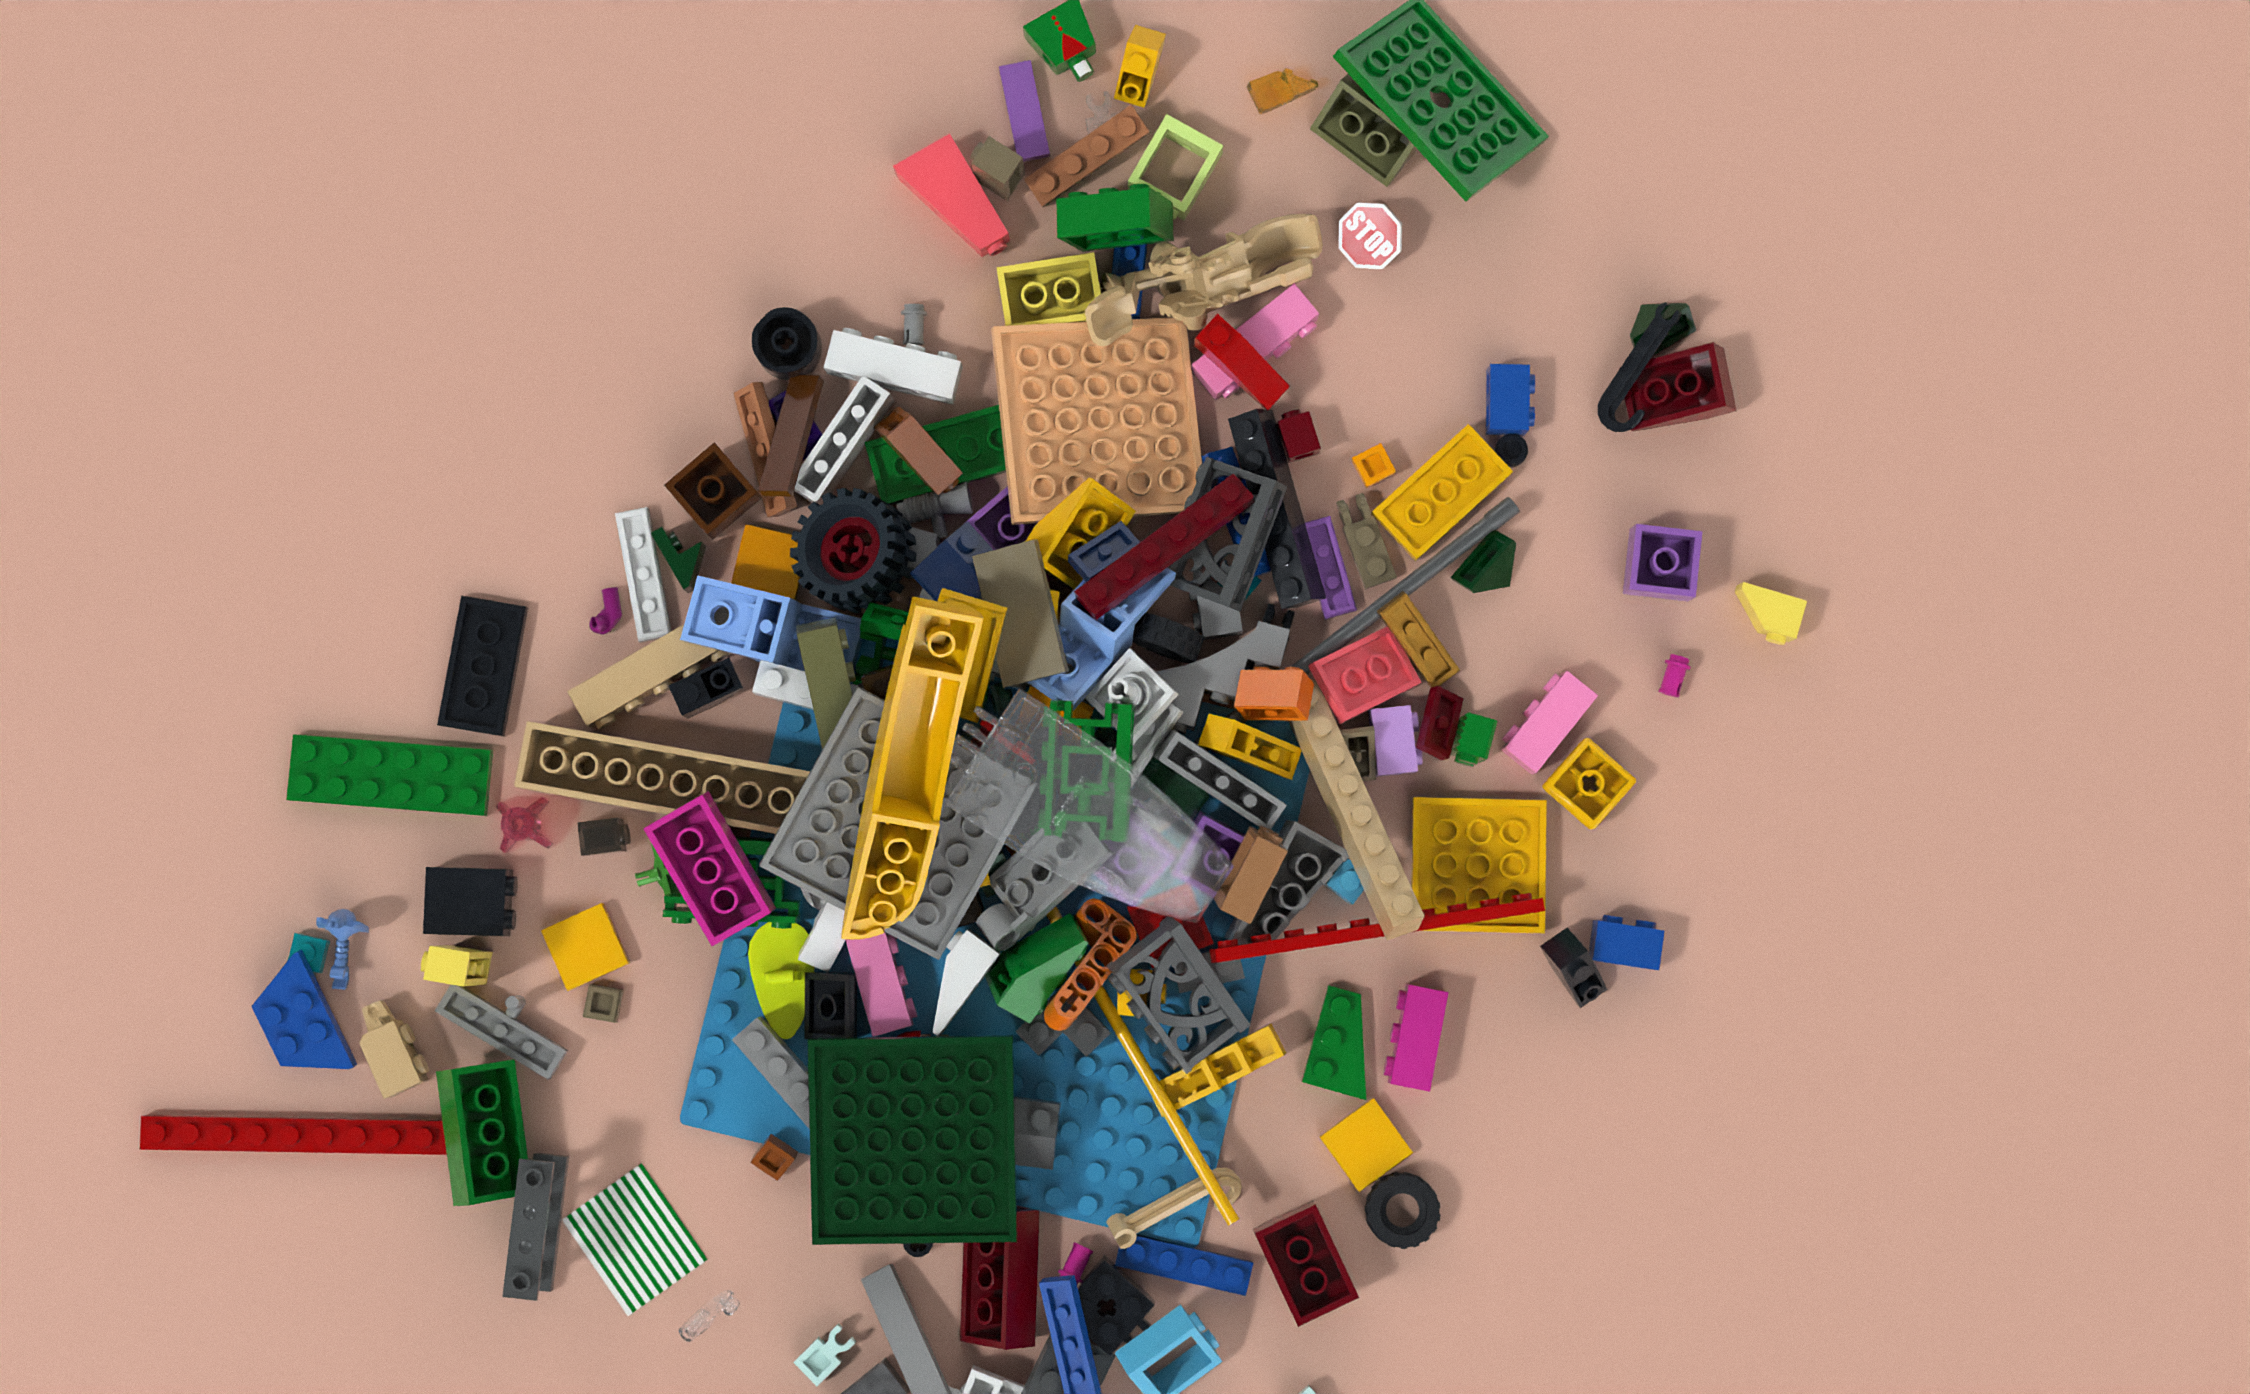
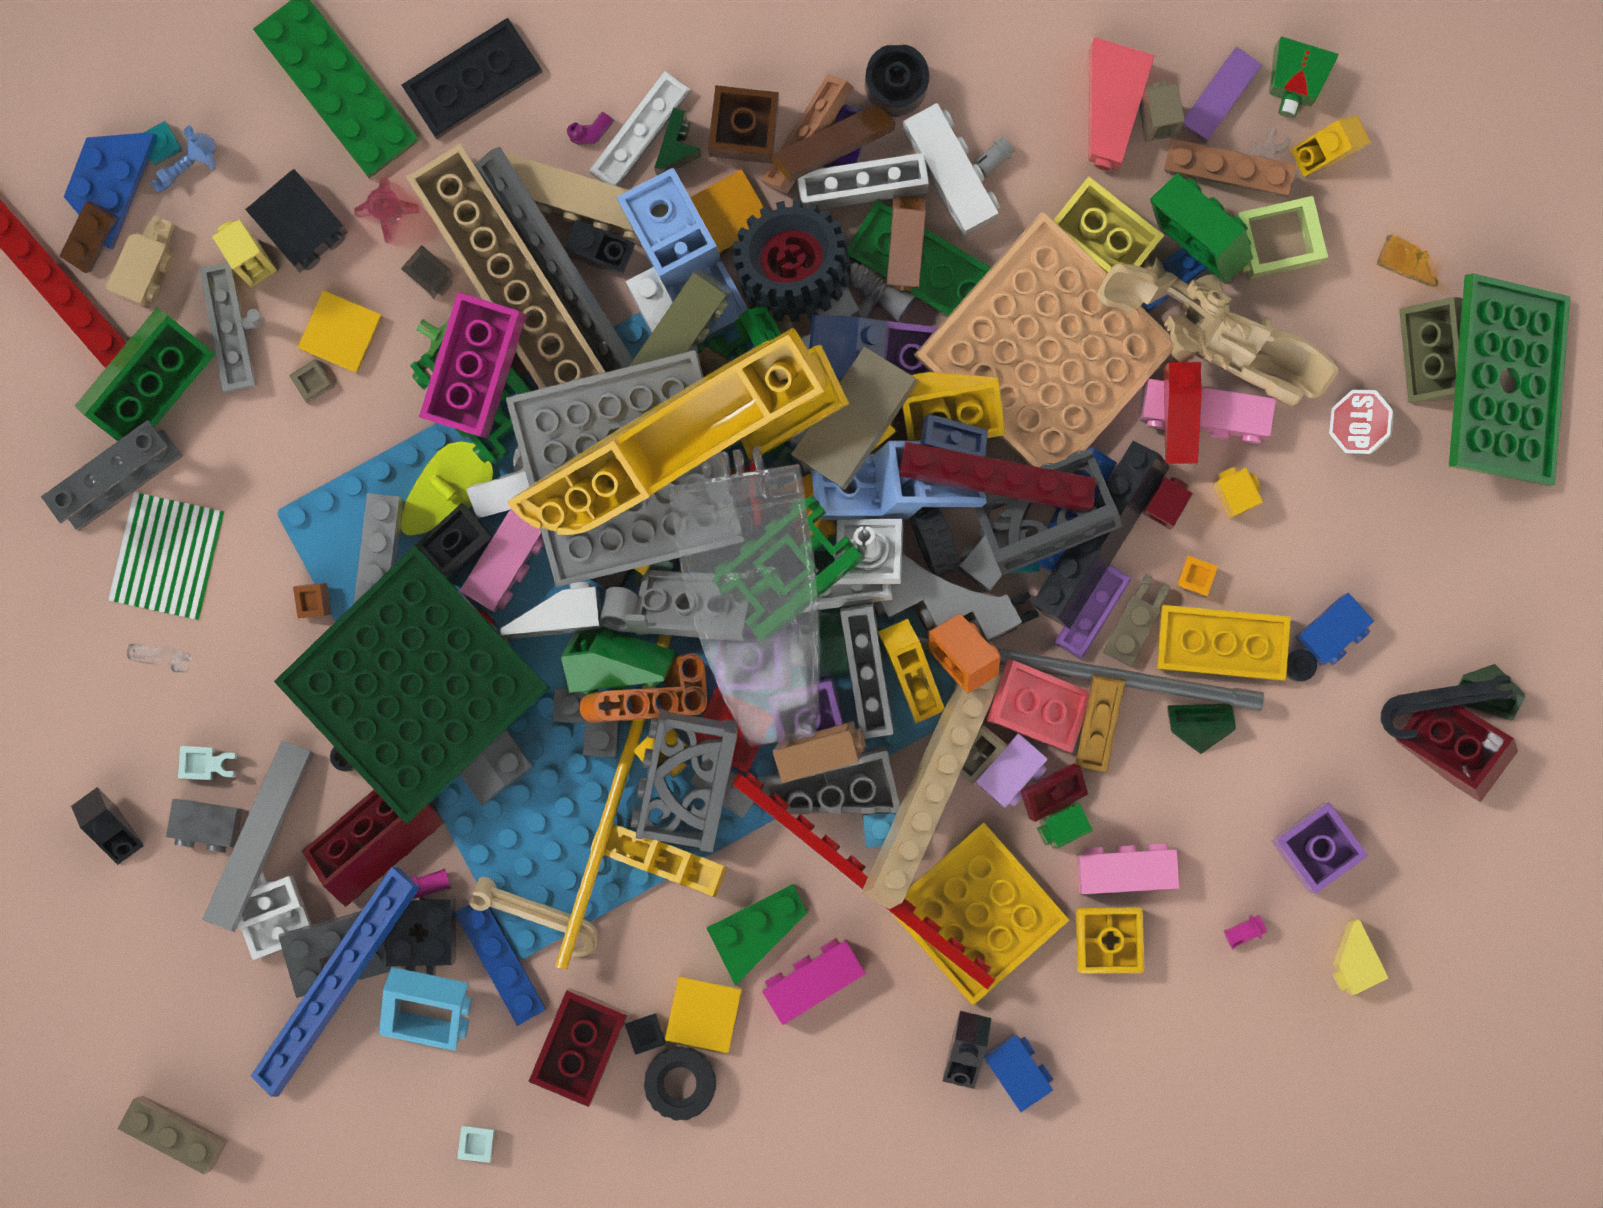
camera: 45 degrees right, 0 degrees up
(330, 1075) = (88, 236): none -> reddish brown plate
(685, 732) = (553, 260): none -> dark grey plate
(1337, 375) = (1238, 491): none -> yellow brick
(1340, 1202) = (645, 1033): none -> black tile

